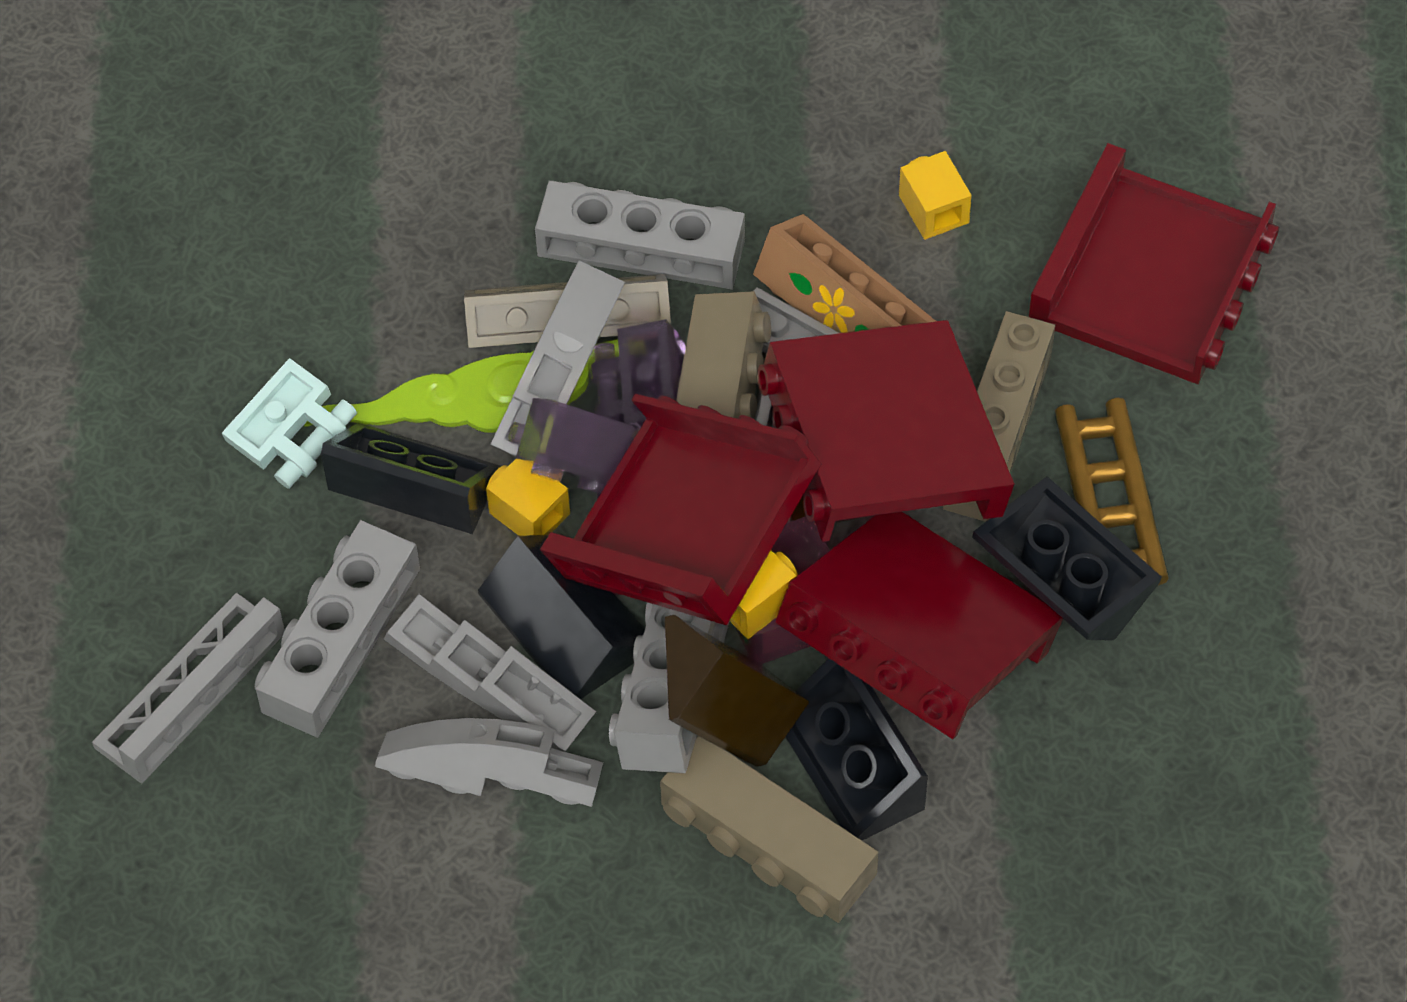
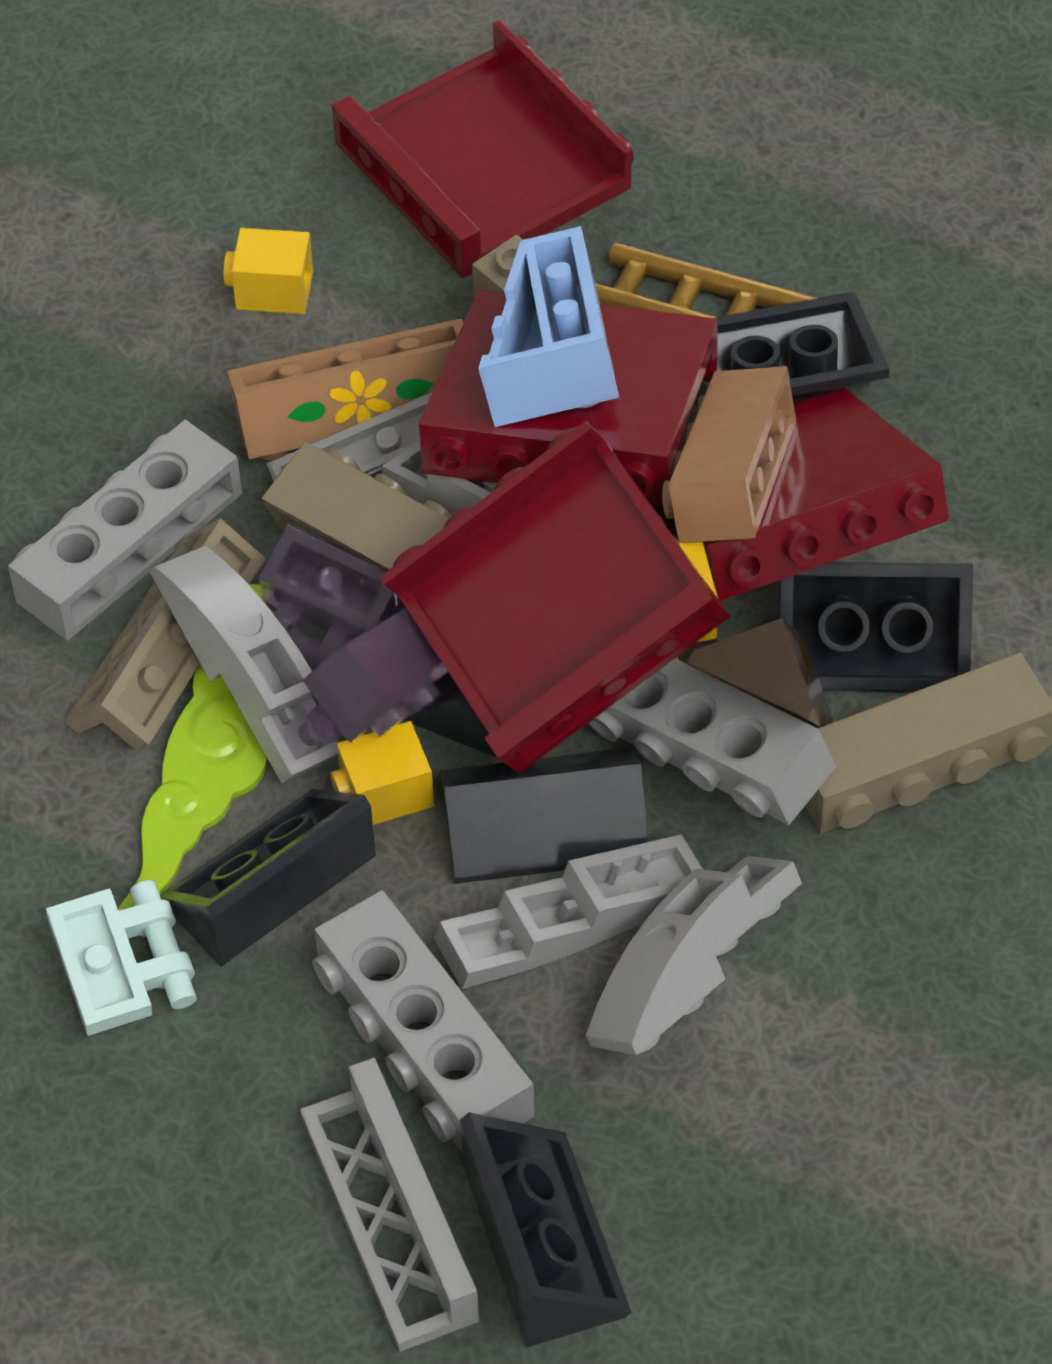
camera: 60 degrees left, 5 degrees down
(217, 777) = (540, 1228): none -> black slope
(896, 377) = (550, 336): none -> light blue wedge
(897, 559) = (731, 455): none -> medium nougat brick

